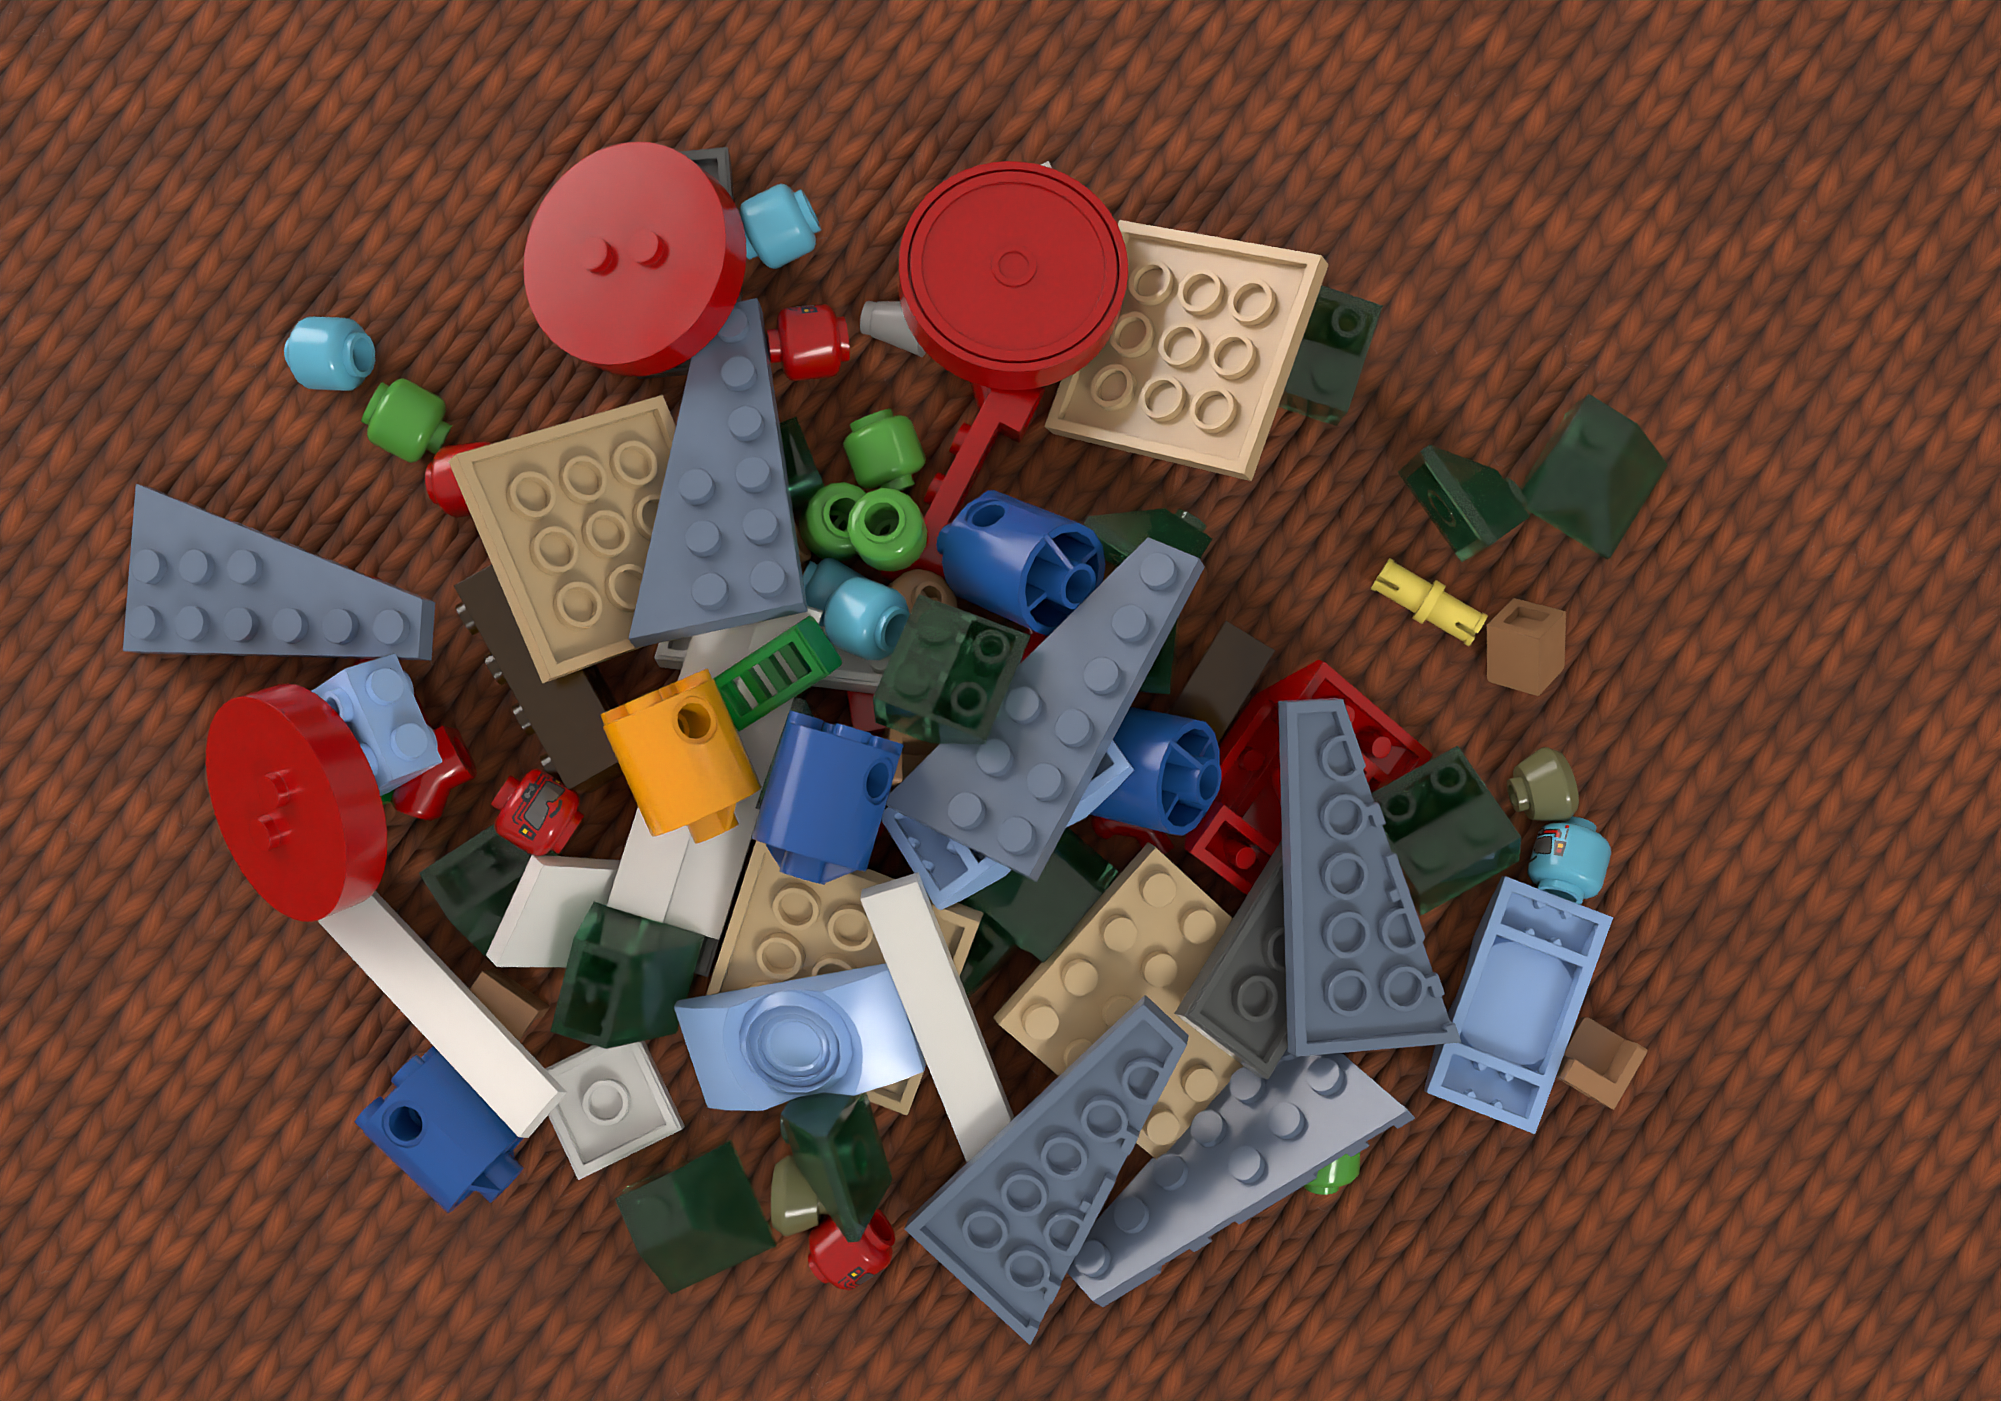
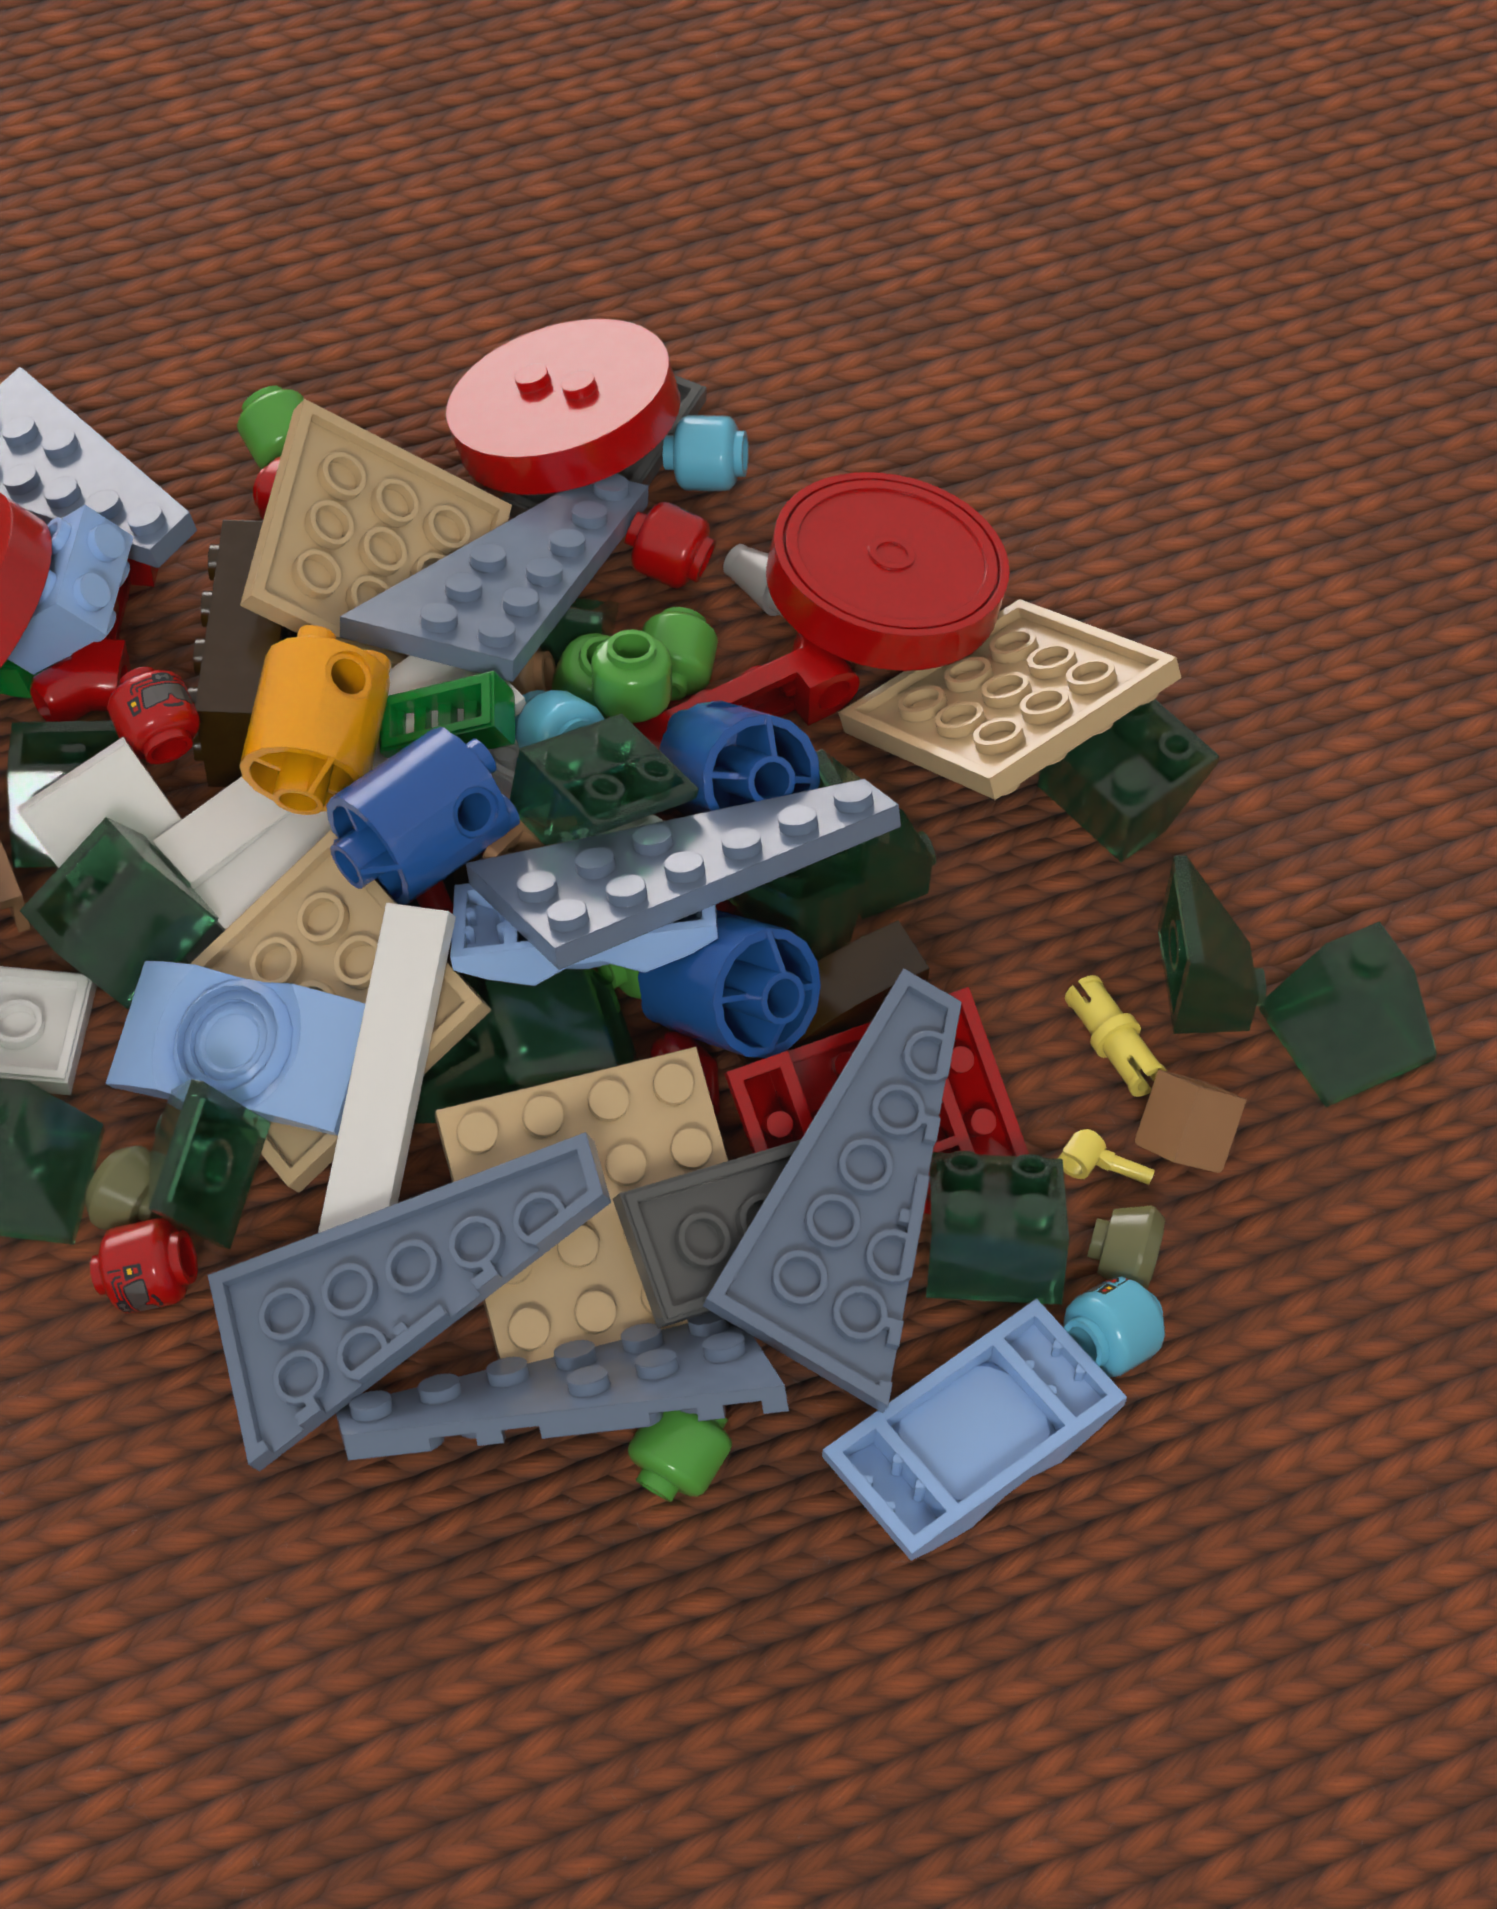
camera: 30 degrees right, 30 degrees down
(329, 353) = (254, 355): medium azure head -> none
(1461, 718) = (1088, 1149): none -> light yellow hand
(1599, 1062) = (1022, 1540): medium nougat panel -> none

